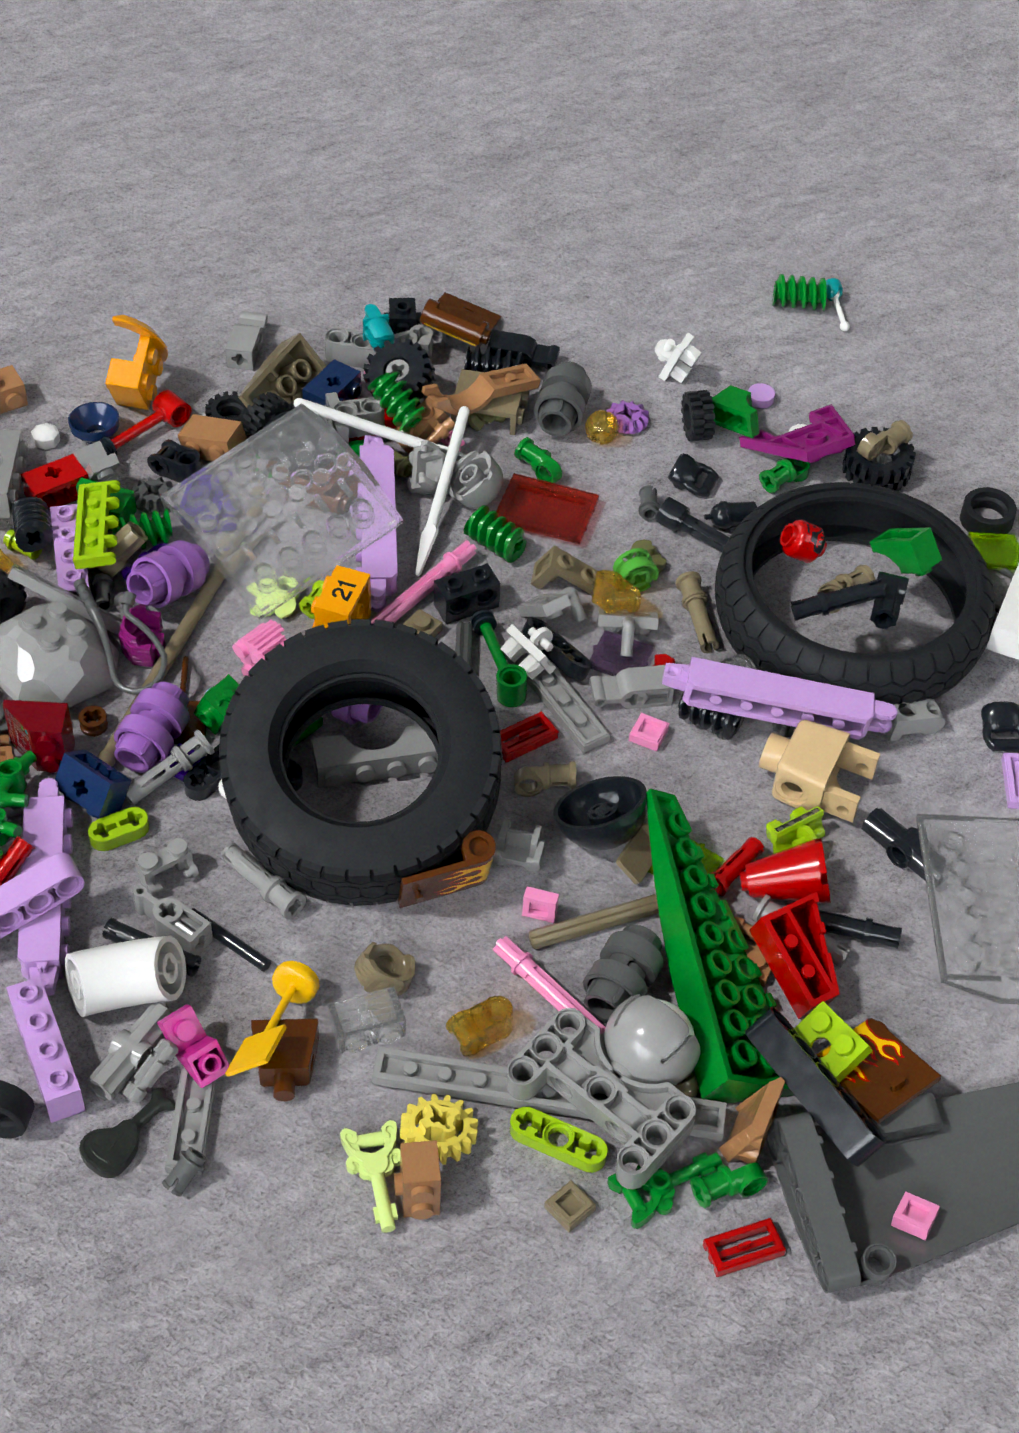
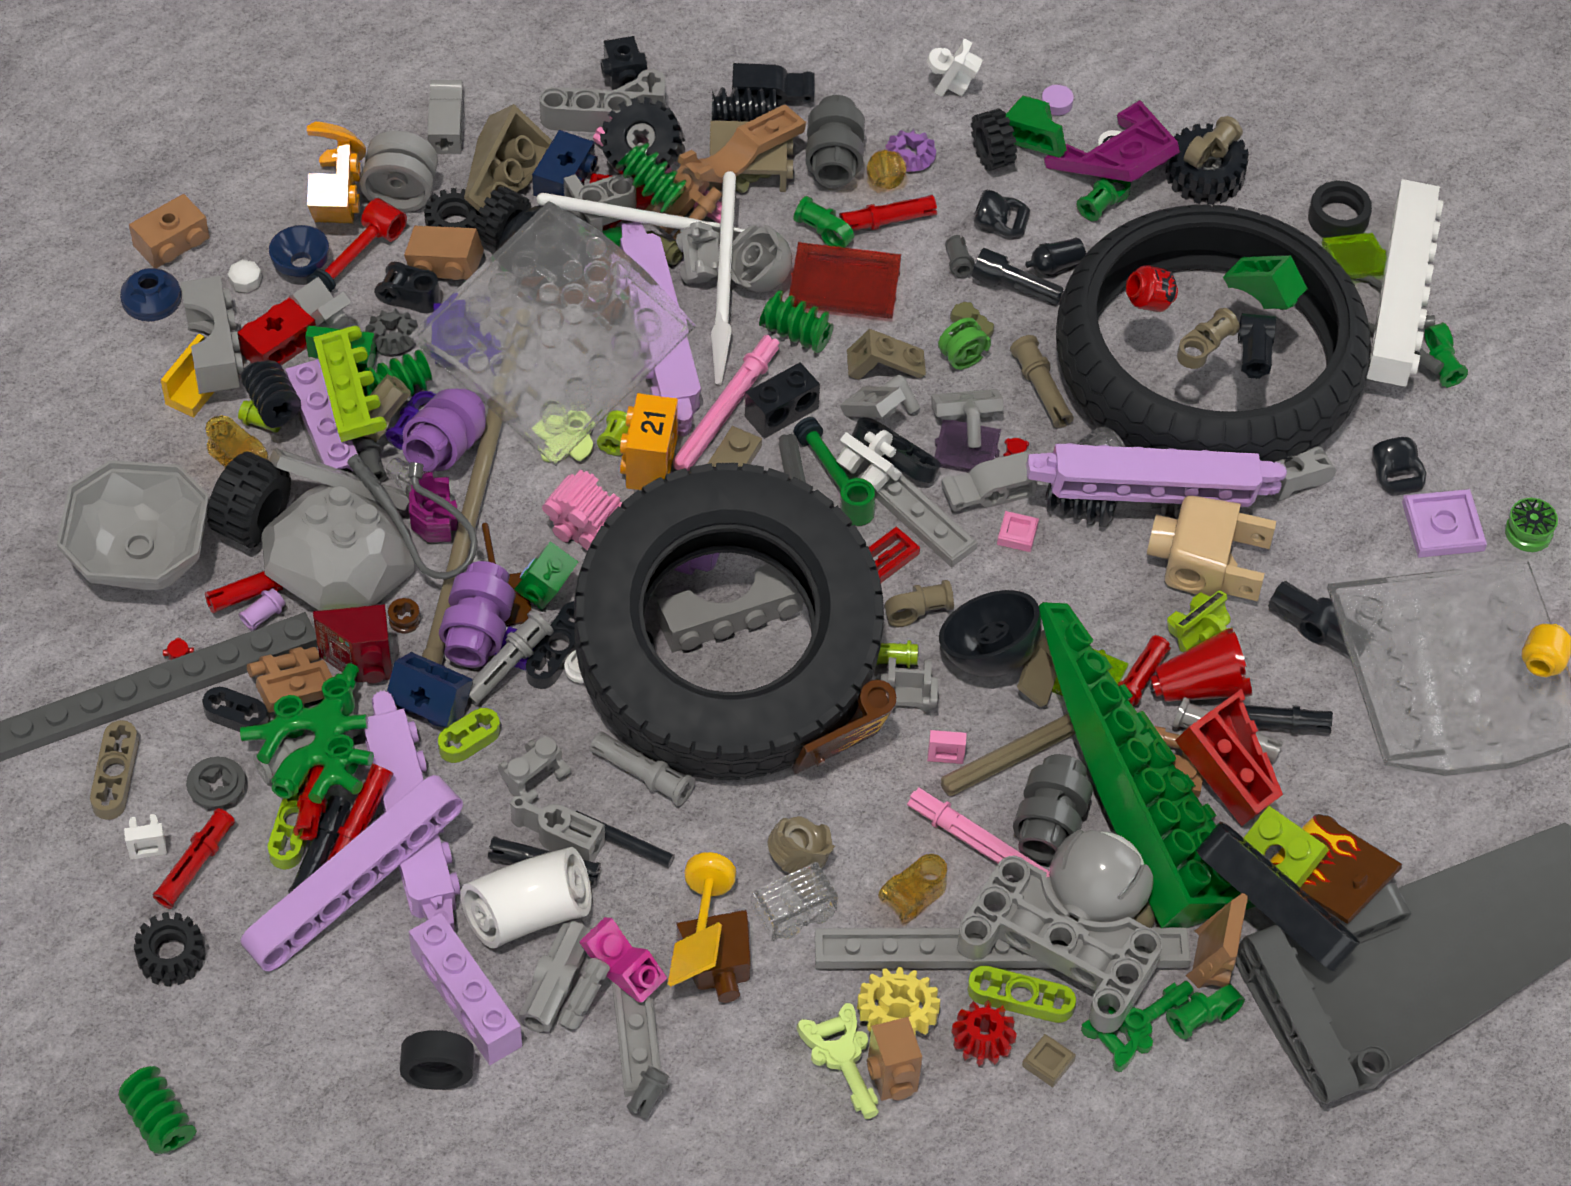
camera: 10 degrees left, 5 degrees up
(113, 1149) = (564, 1081): pearl dark grey piece -> none
(193, 370) = (399, 170): none -> light grey wheel
(376, 327) = (602, 85): teal arm -> none
(460, 319) = (692, 54): reddish brown door -> none
(500, 1176) = (983, 1046): none -> red gear
(519, 818) = (904, 653): none -> lime pin
(592, 462) = (875, 216): none -> red pin
(615, 593) = (947, 374): clear yellow piece -> none
(748, 1260) = (1207, 1087): red tile -> none
(830, 601) = (1191, 359): black pin -> none
(915, 1215) = (1399, 1011): bright pink tile -> none

